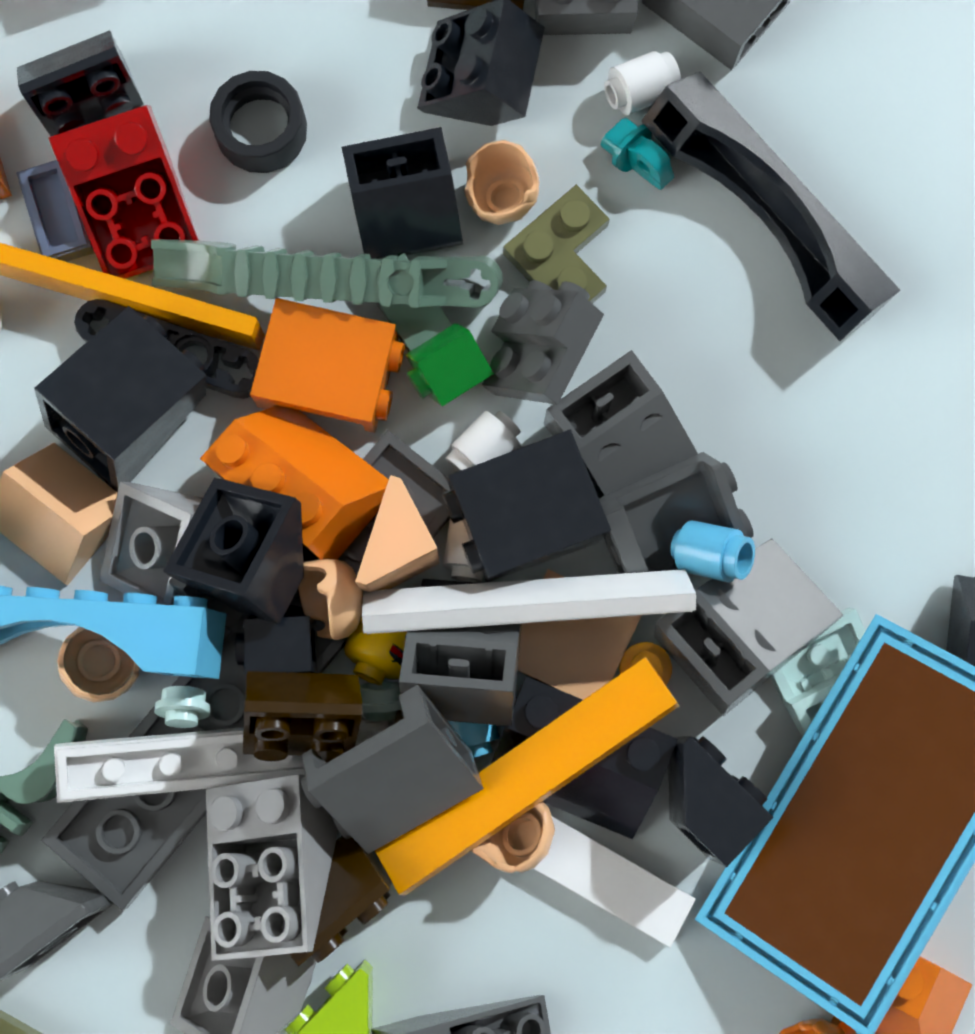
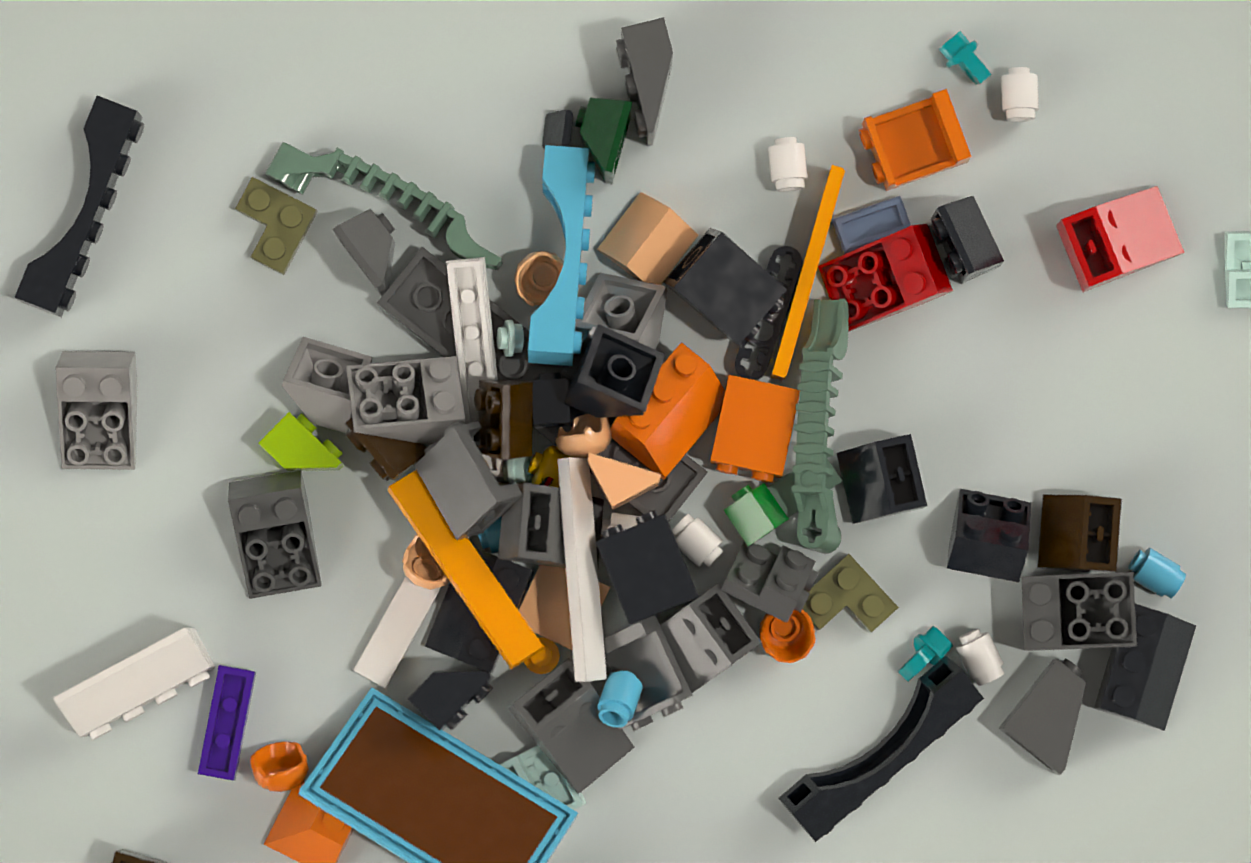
camera: 90 degrees right, 5 degrees up
(248, 88) = (954, 346): black tyre -> none
(501, 182) = (894, 551): light nougat hair -> none
(626, 324) = (788, 640): none -> orange hair

